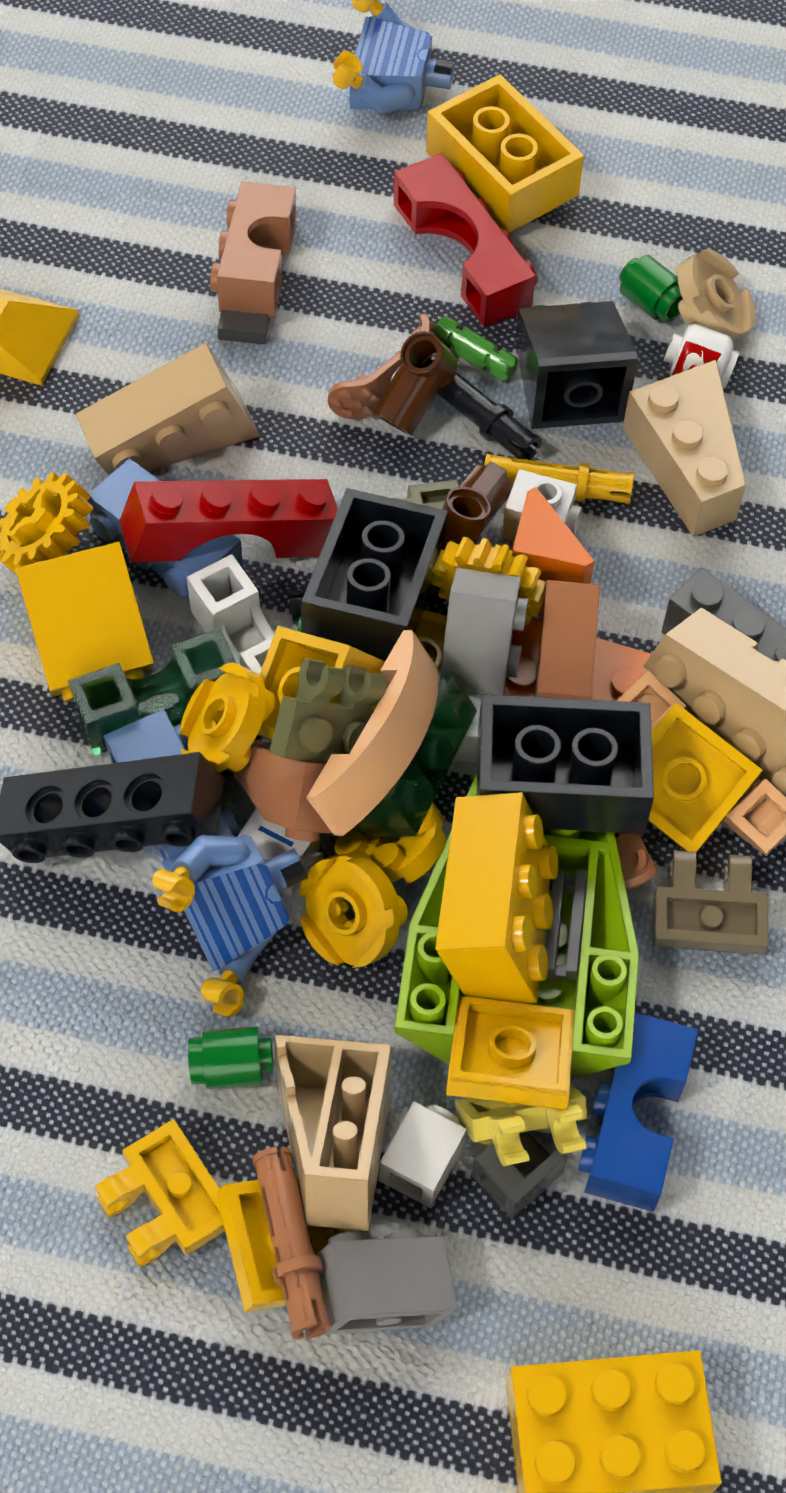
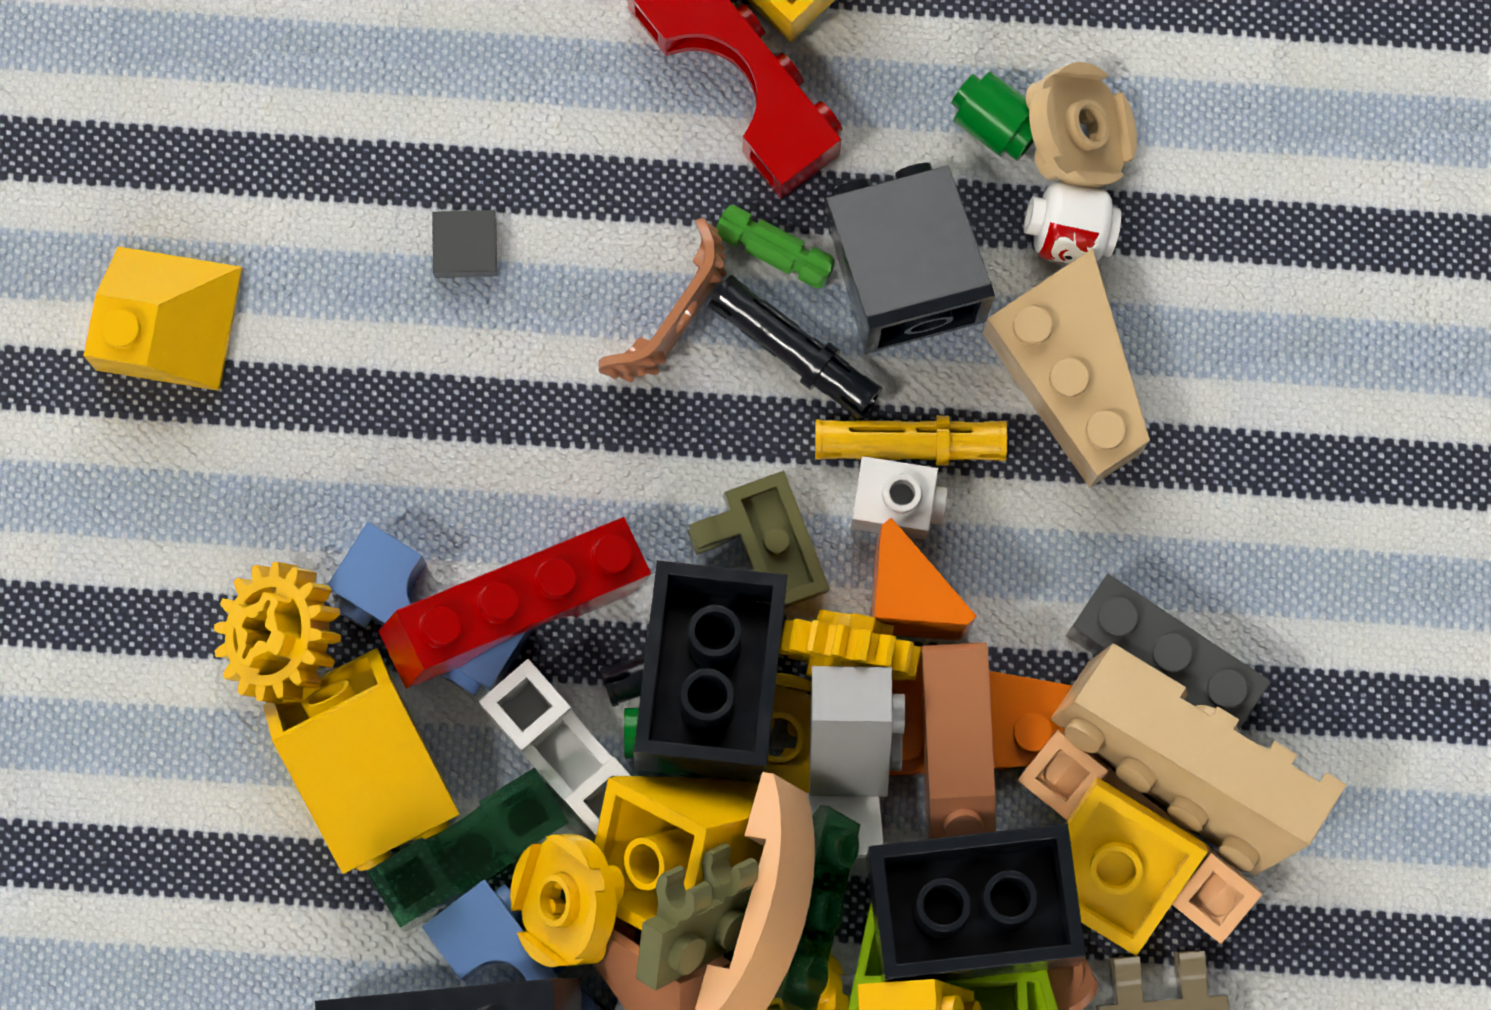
camera: 10 degrees left, 20 degrees up
(168, 415) = (400, 442): tan wedge -> none
(251, 251) = (458, 89): nougat arch -> none
(416, 386) = (708, 340): reddish brown piece -> none
(475, 502) = (813, 523): reddish brown piece -> none

